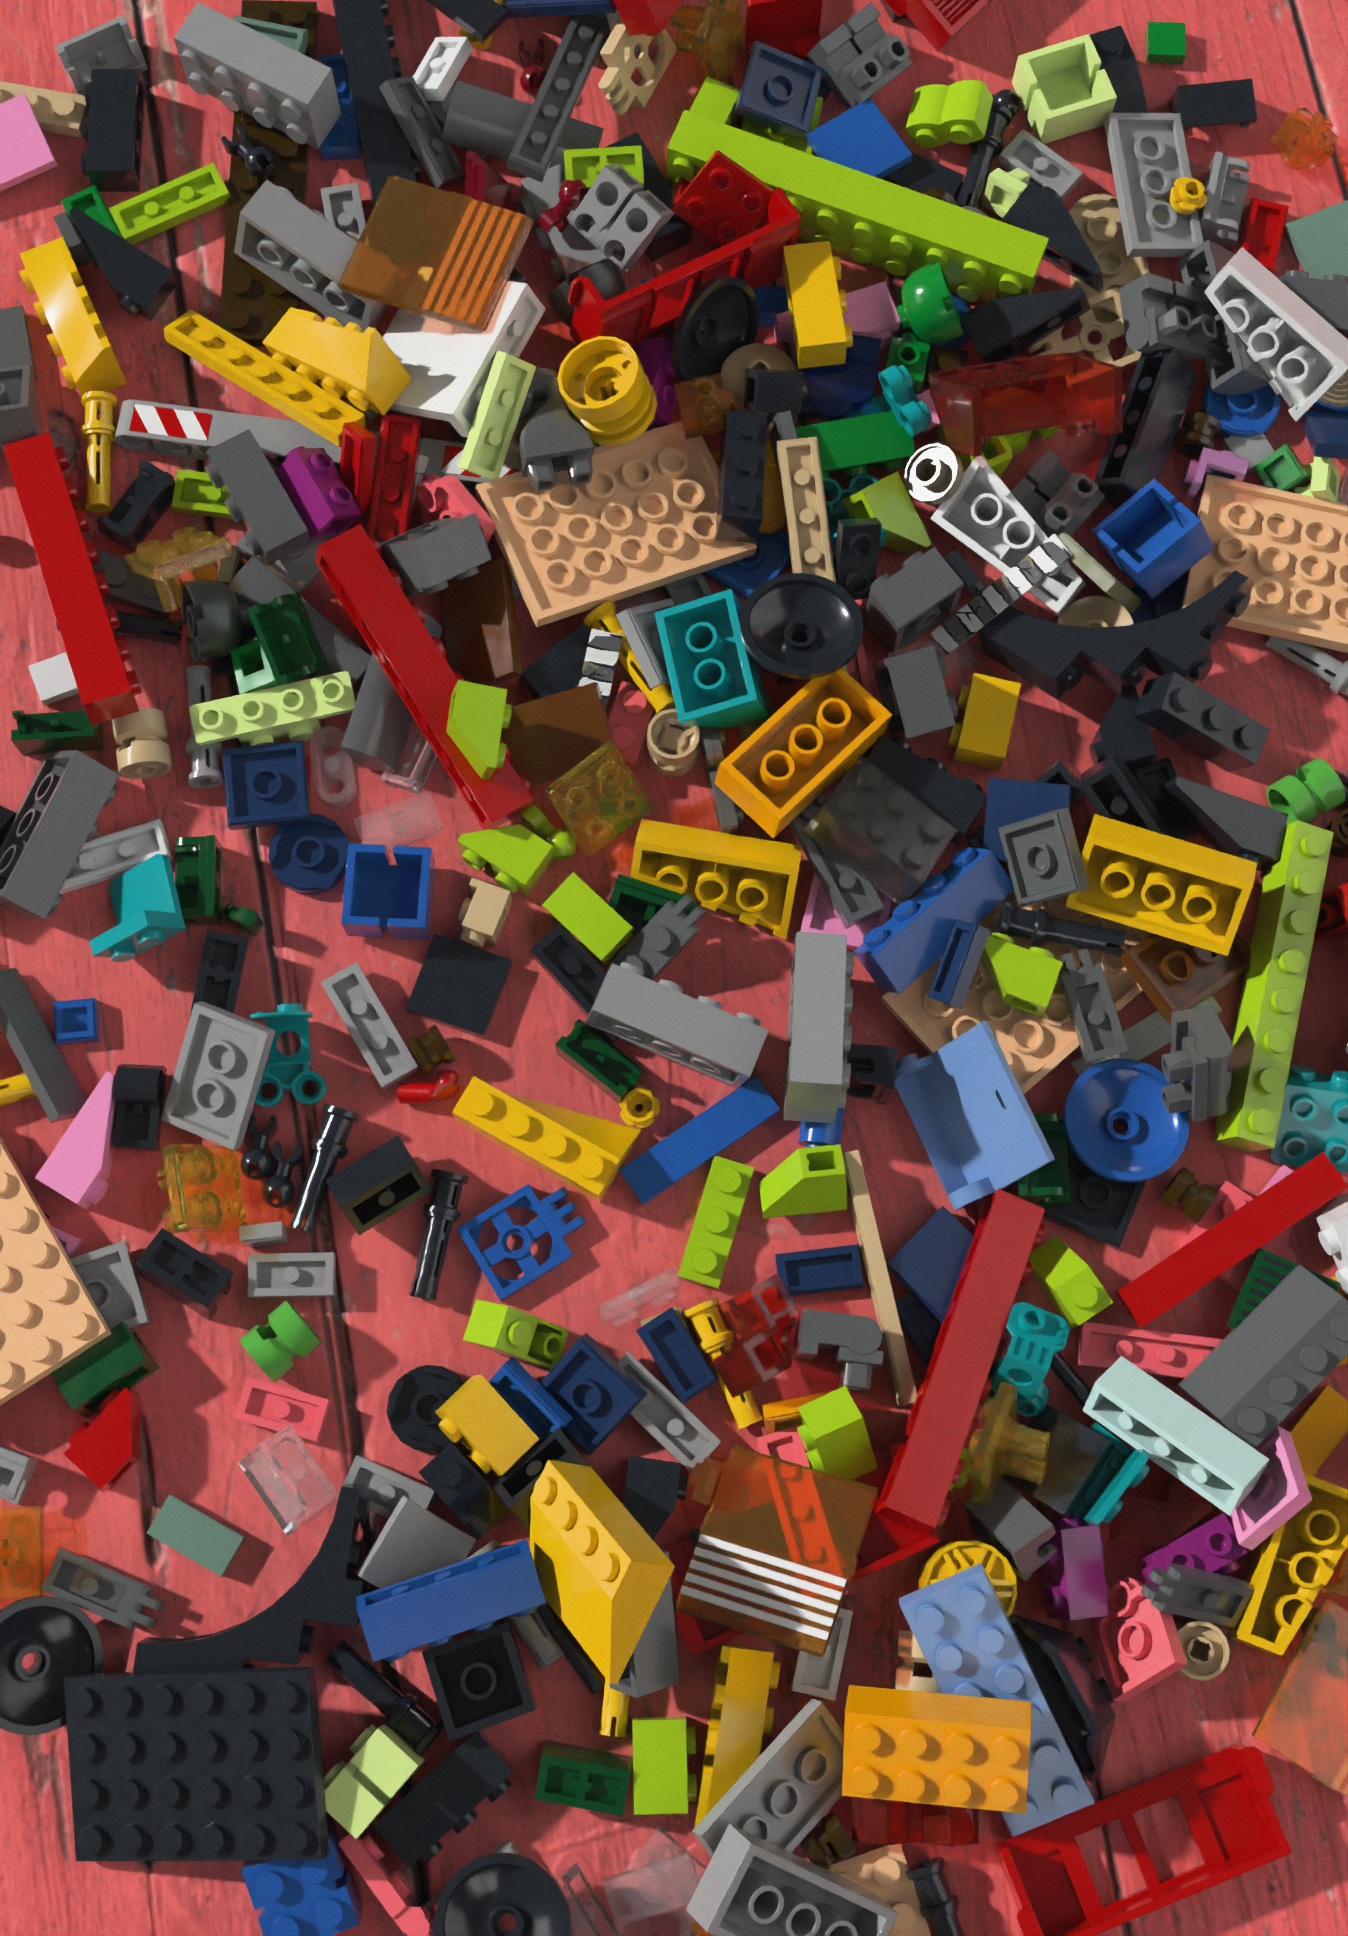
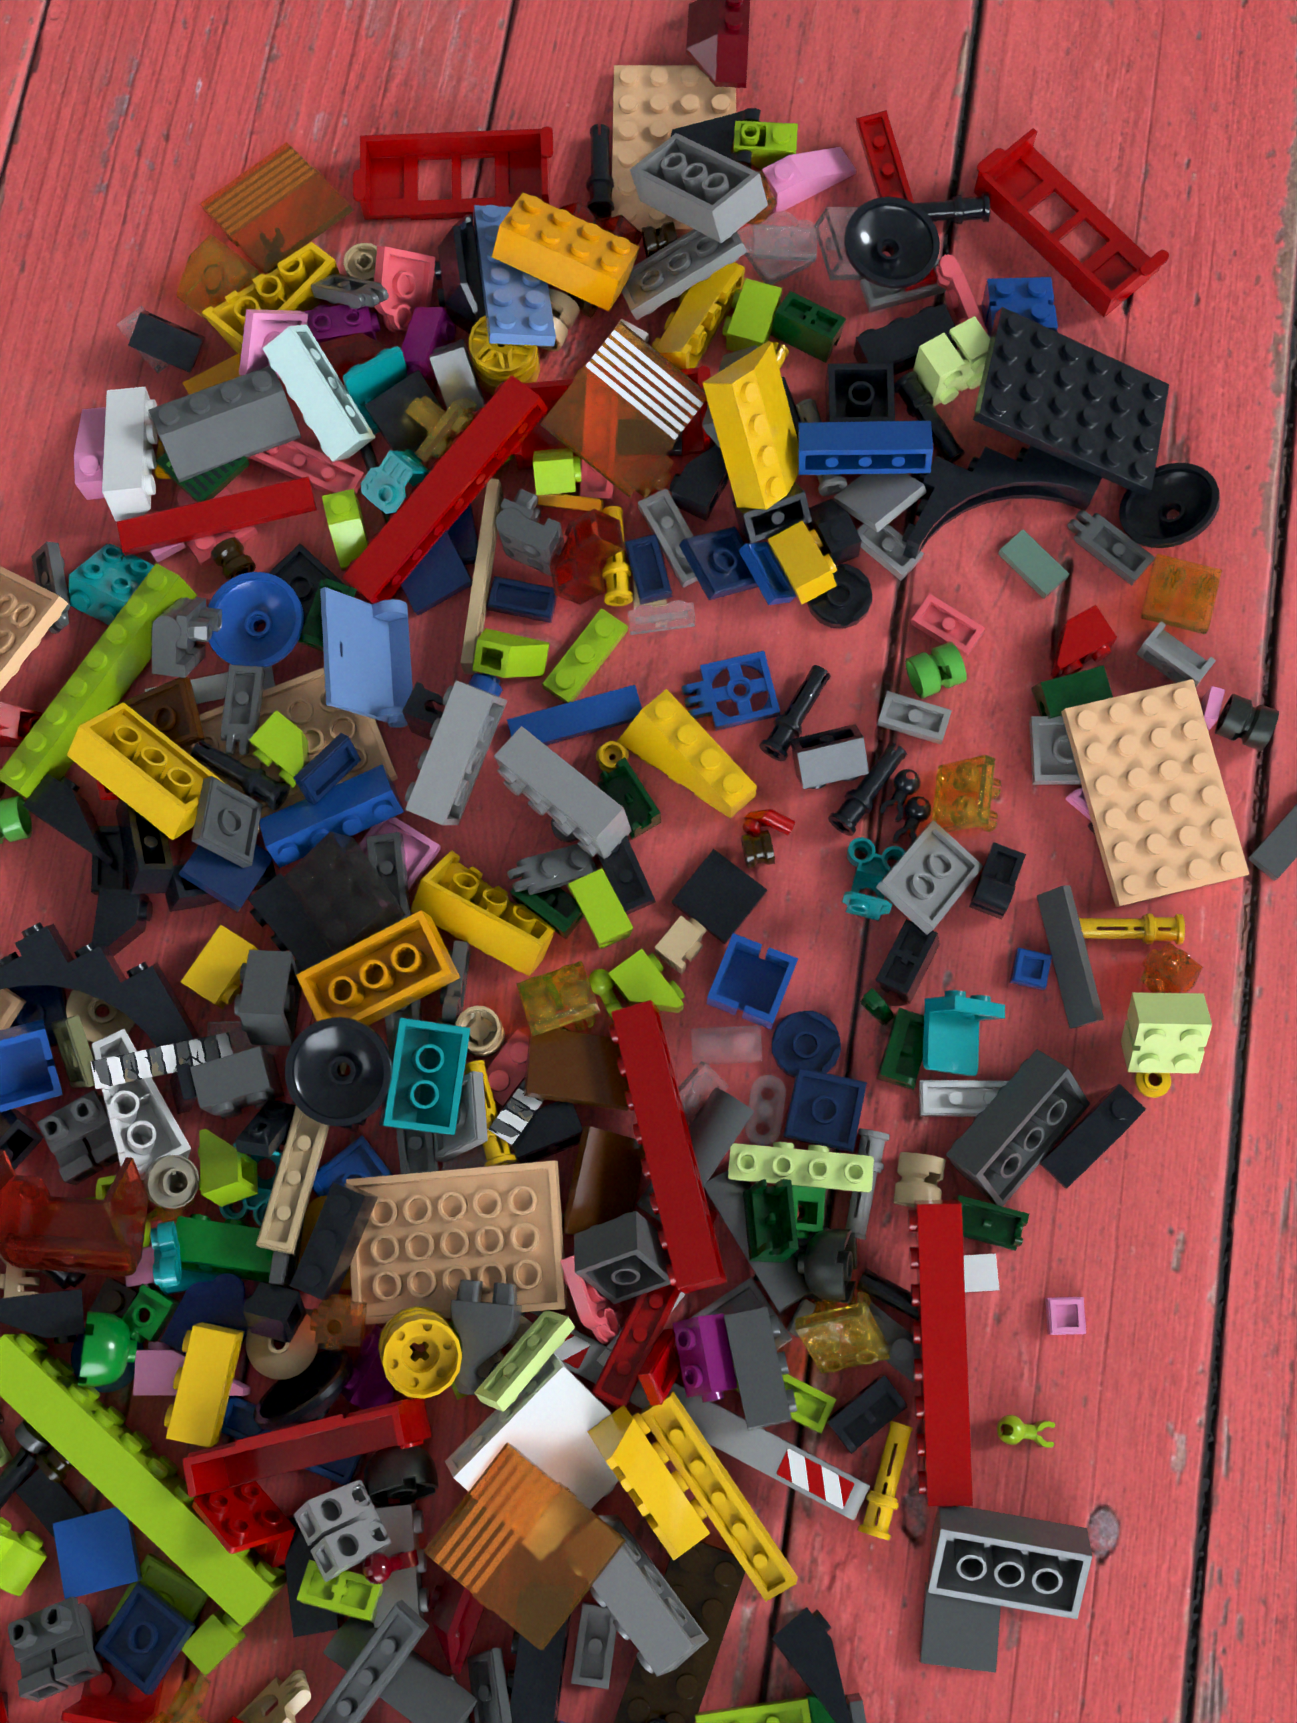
camera: 155 degrees left, 0 degrees up
(72, 317) = (877, 1630): yellow wedge -> none
(86, 1150) = (1050, 854): bright pink slope -> none
(184, 1273) = (995, 740): black hinge -> none
(264, 1234) = (927, 752): light grey tile -> none
(288, 1479) = (956, 570): clear brick -> none
(370, 1026) = (799, 886): light grey plate -> none
(476, 724) = (635, 1077): lime slope -> none
(515, 1334) = (761, 621): lime slope -> none
(1201, 722) = (53, 898): black brick -> none

